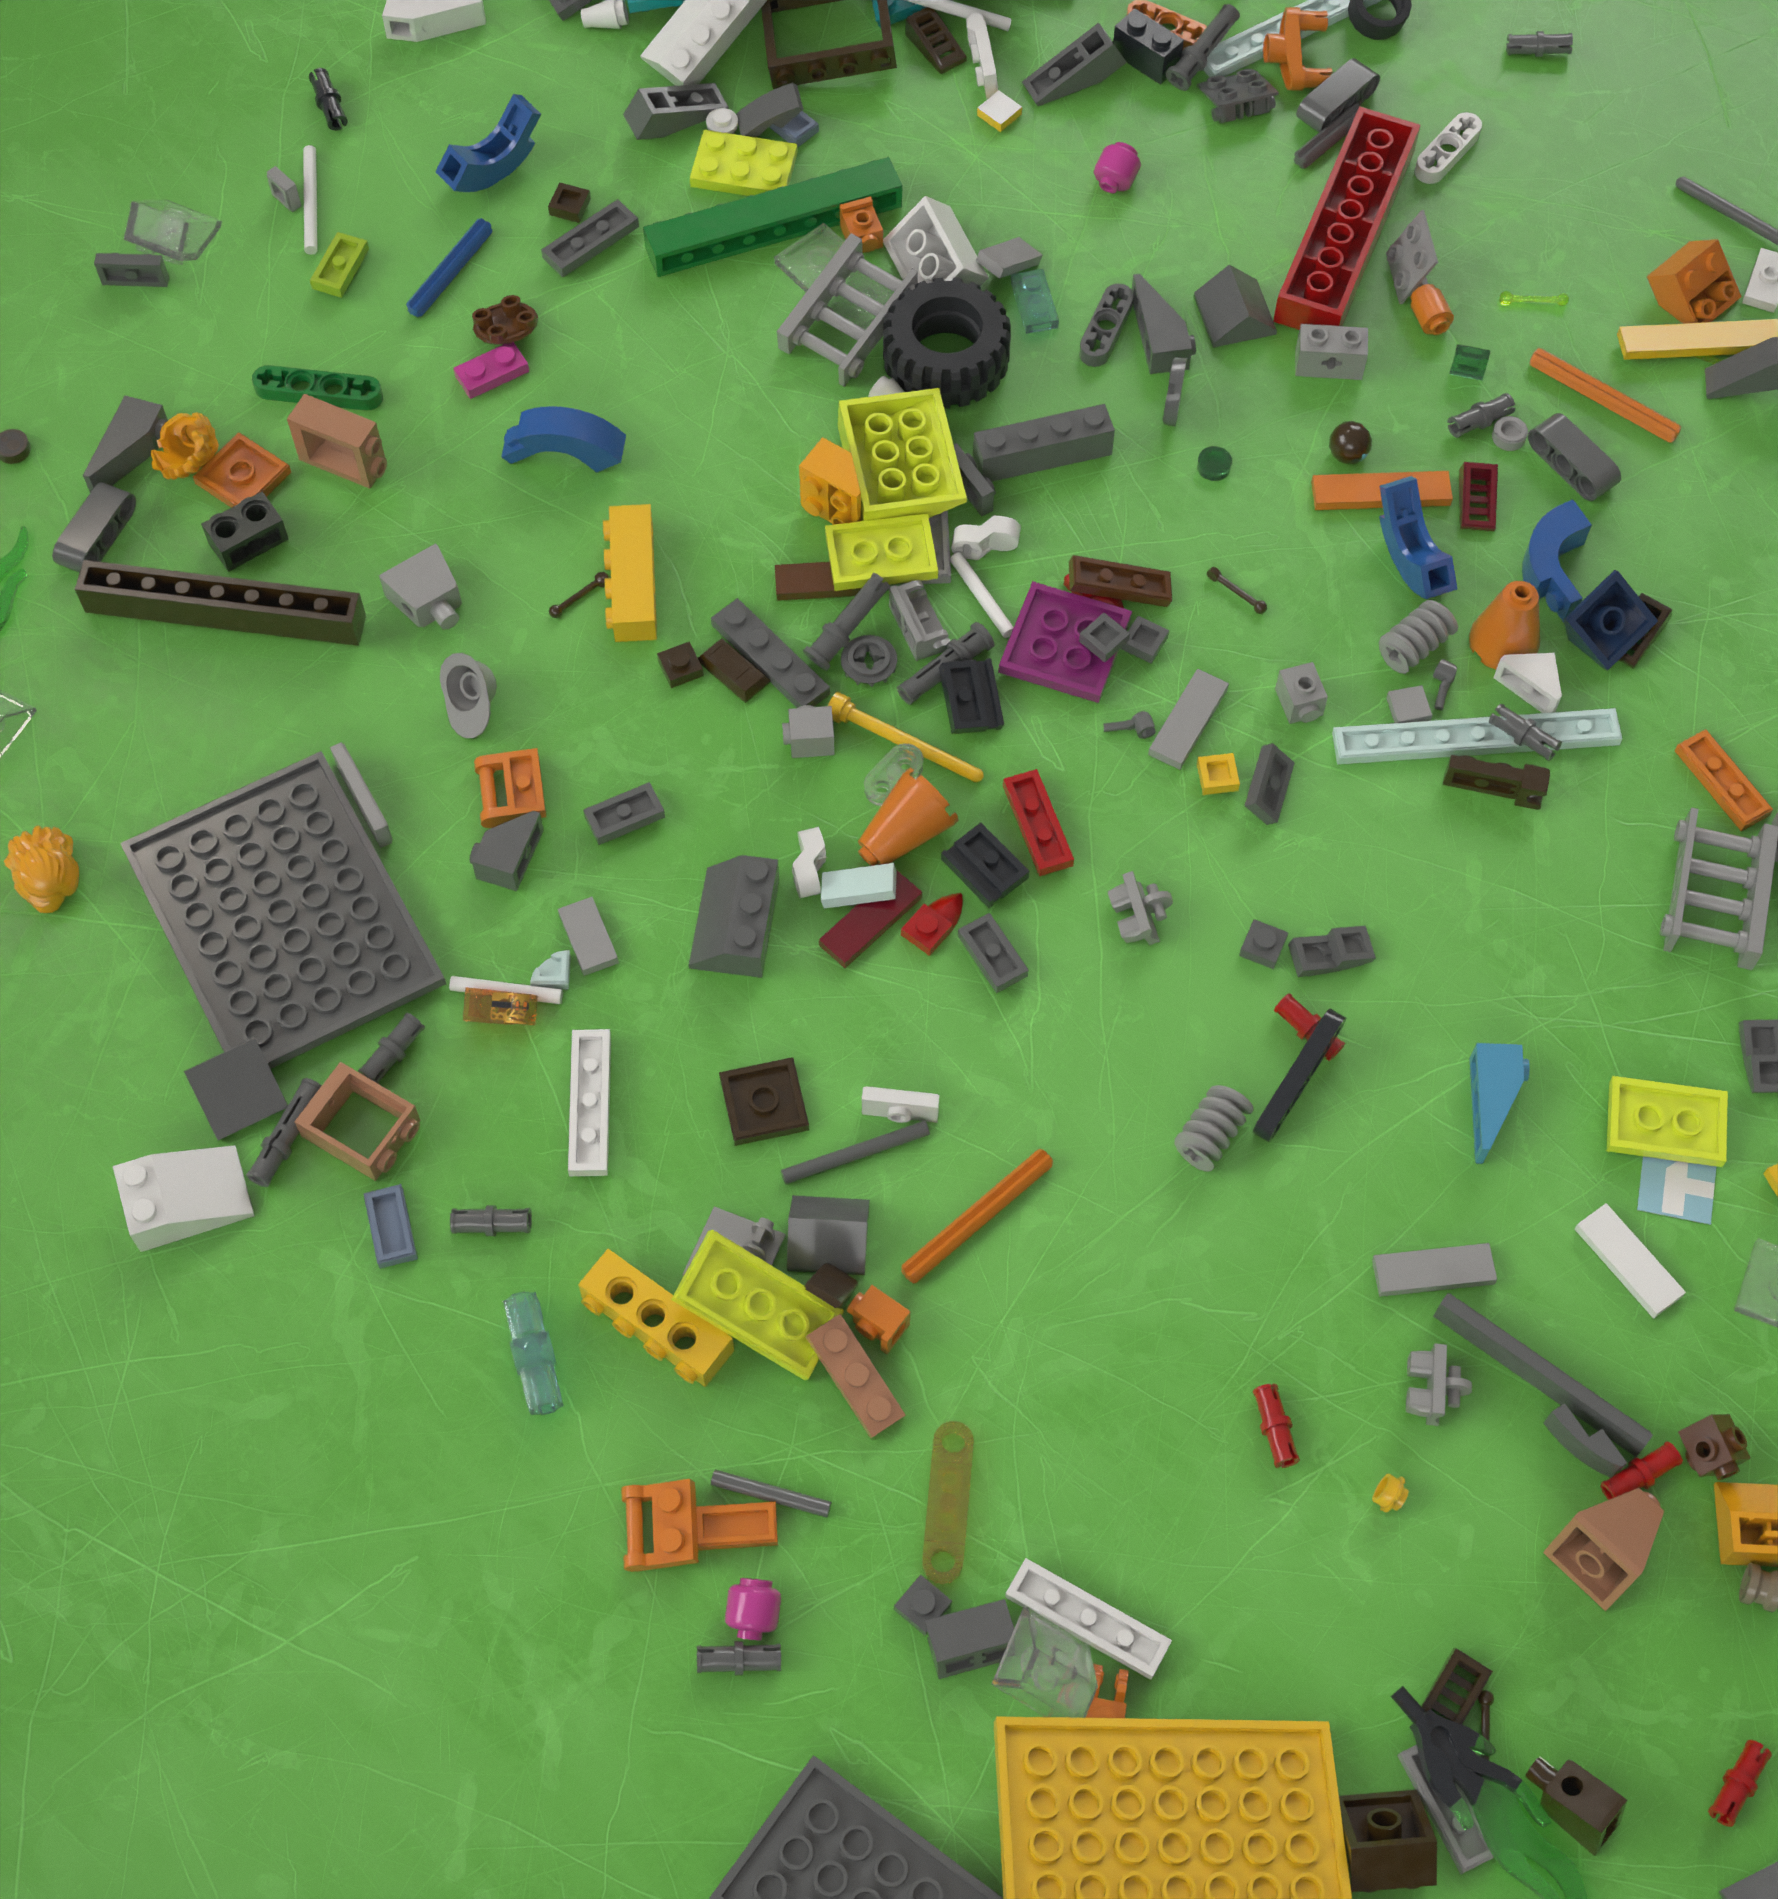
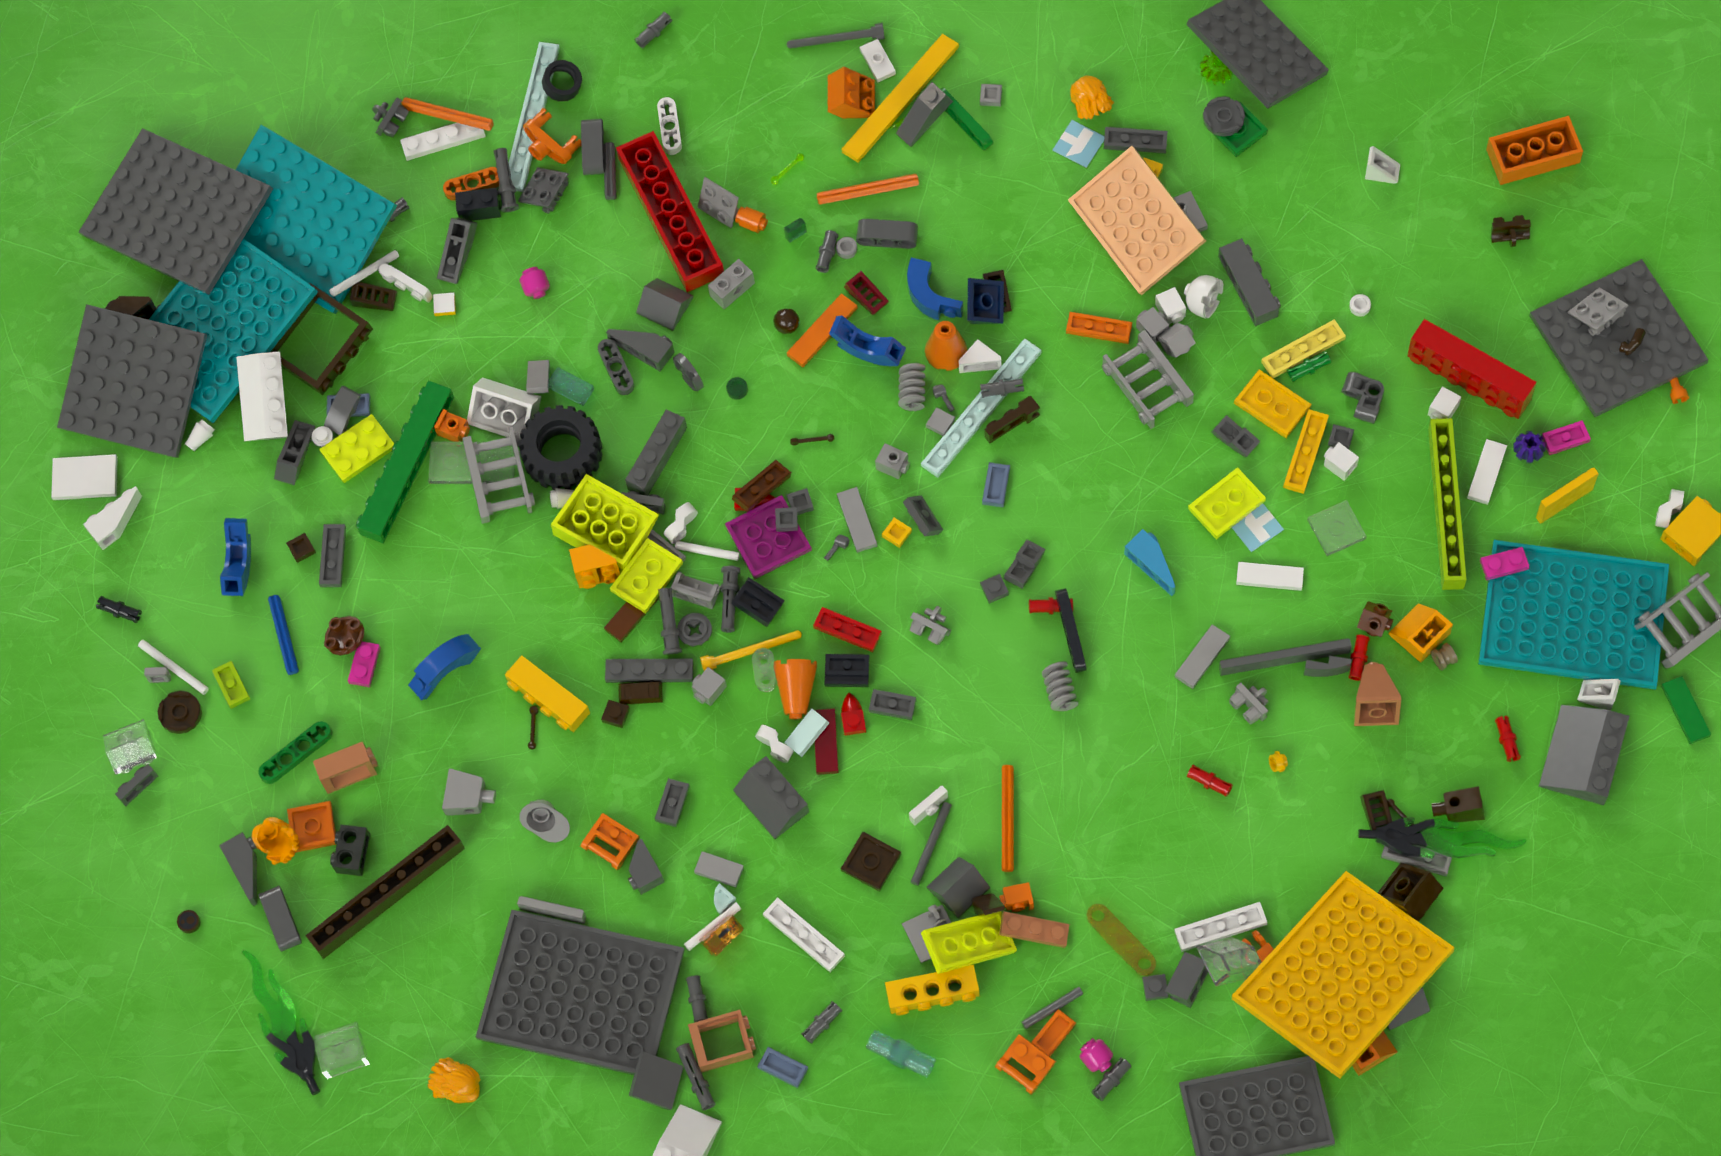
camera: 40 degrees left, 5 degrees up
(262, 246) = (179, 712): none -> dark brown tile
(1398, 834) = (996, 485): none -> sand blue tile

